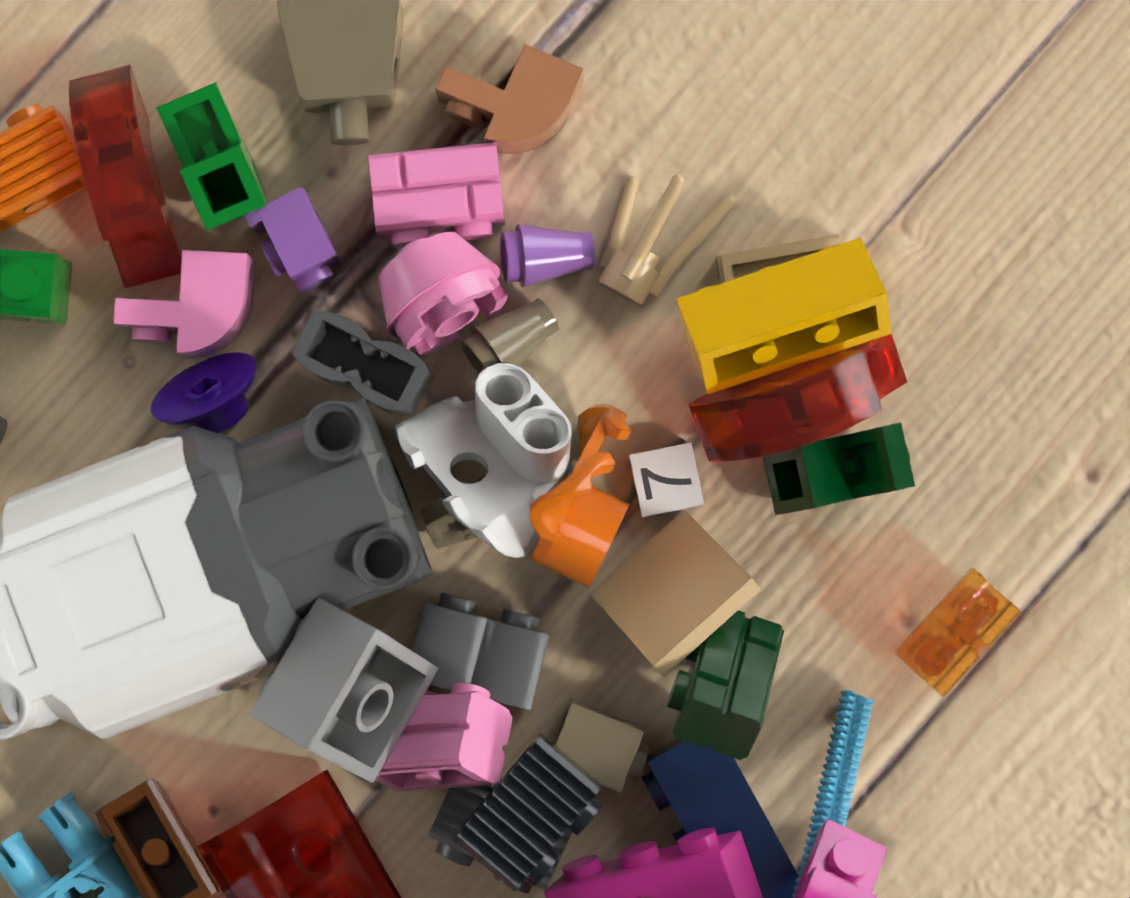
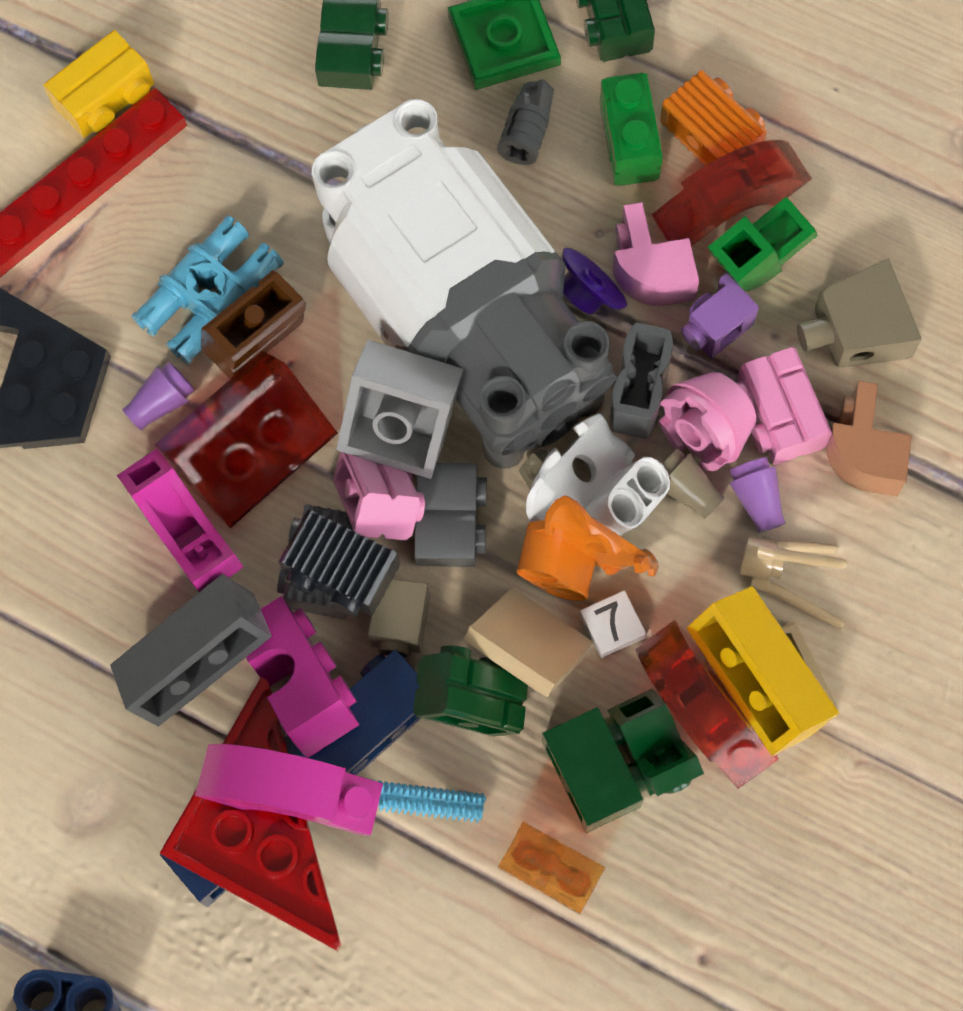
camera: 80 degrees right, 15 degrees down
(847, 551) = (593, 769): none -> dark green brick

